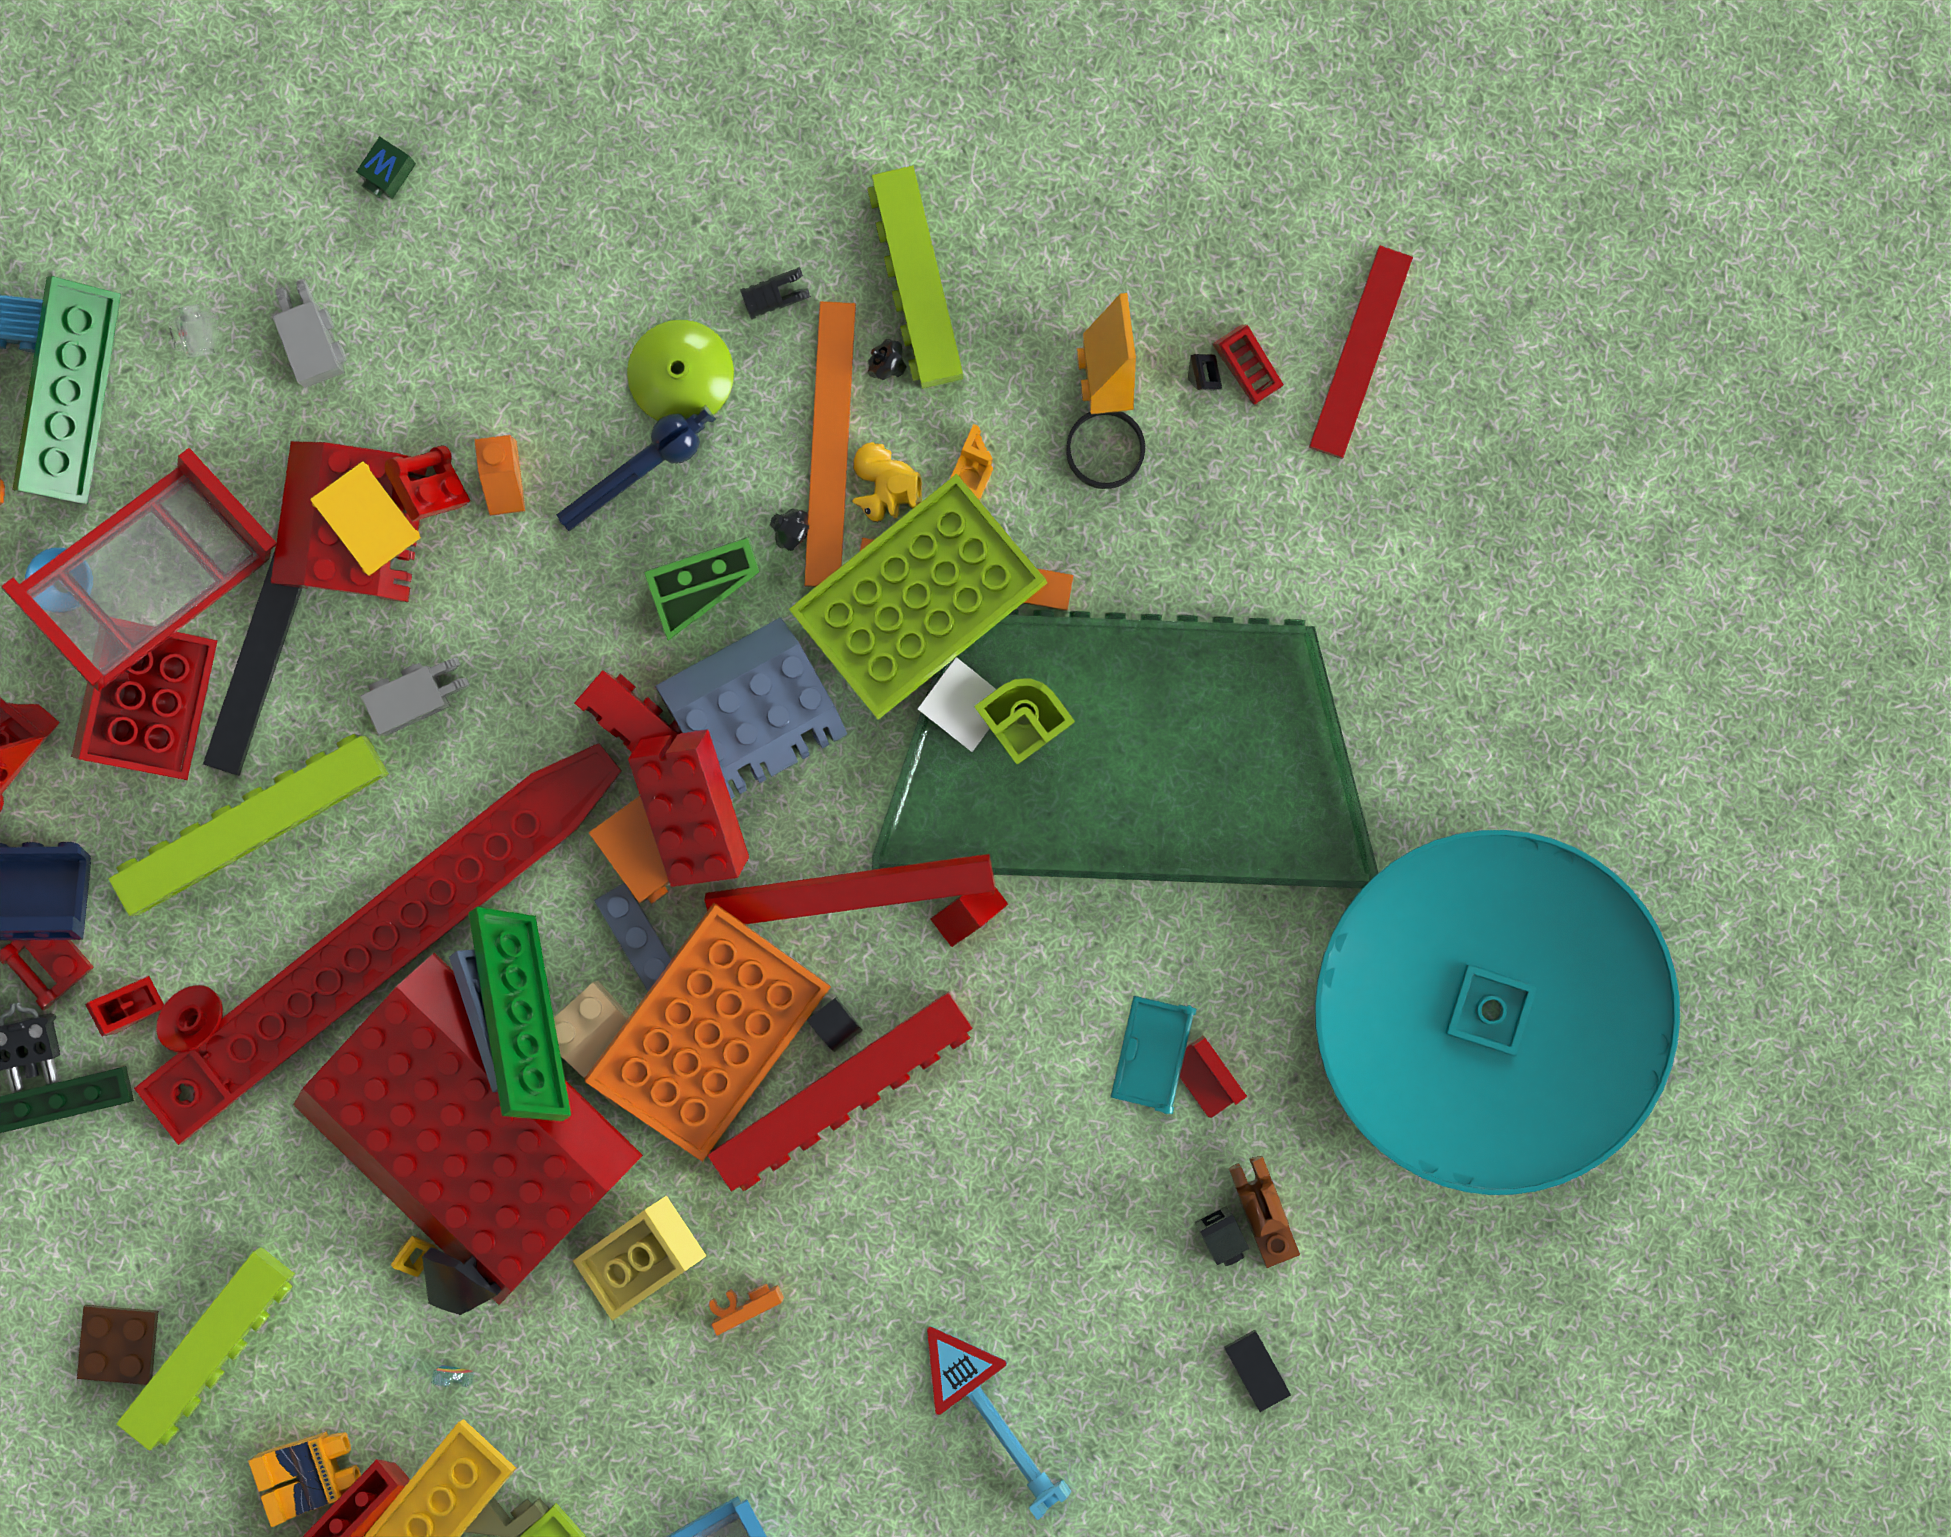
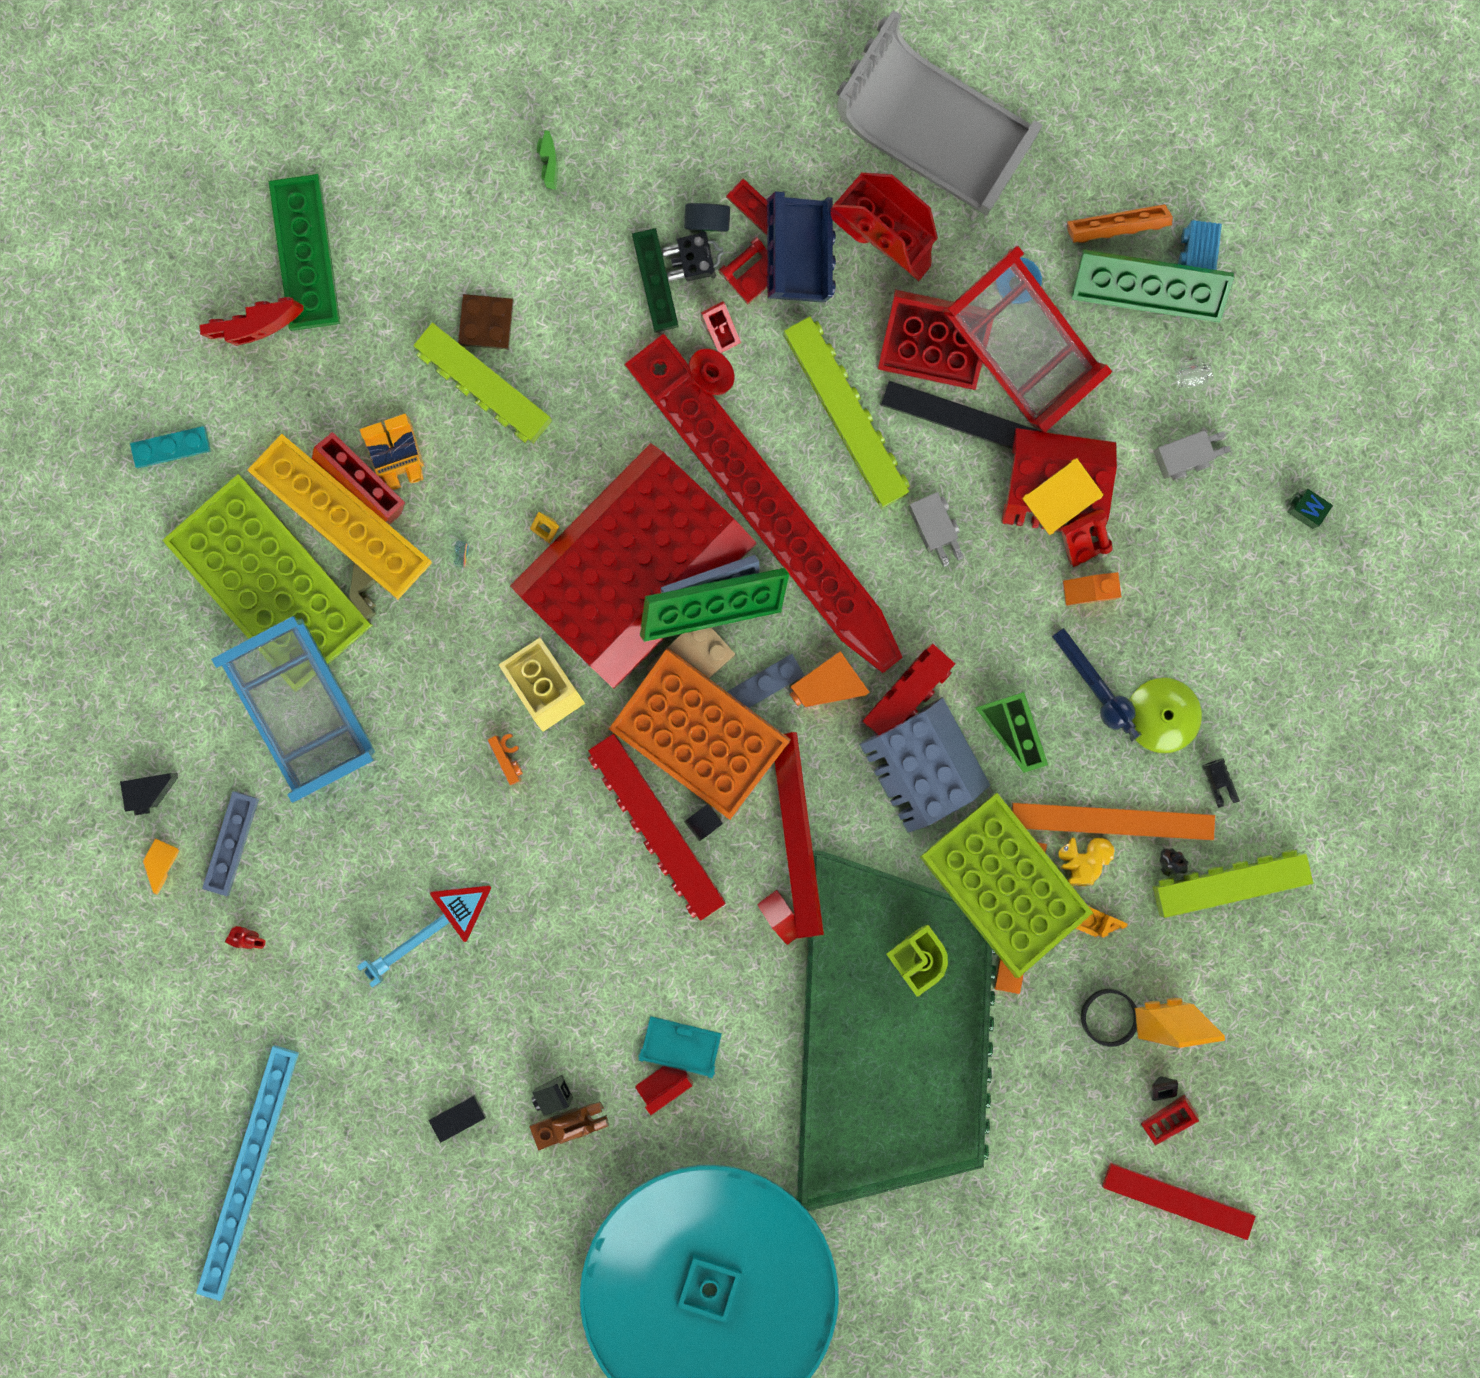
camera: 85 degrees right, 0 degrees up
(455, 1285) = (525, 557): black slope -> none
(689, 808) = (857, 723): red piece -> none
(790, 528) = (1053, 793): black piece -> none
(953, 703) = (931, 910): white sticker -> none

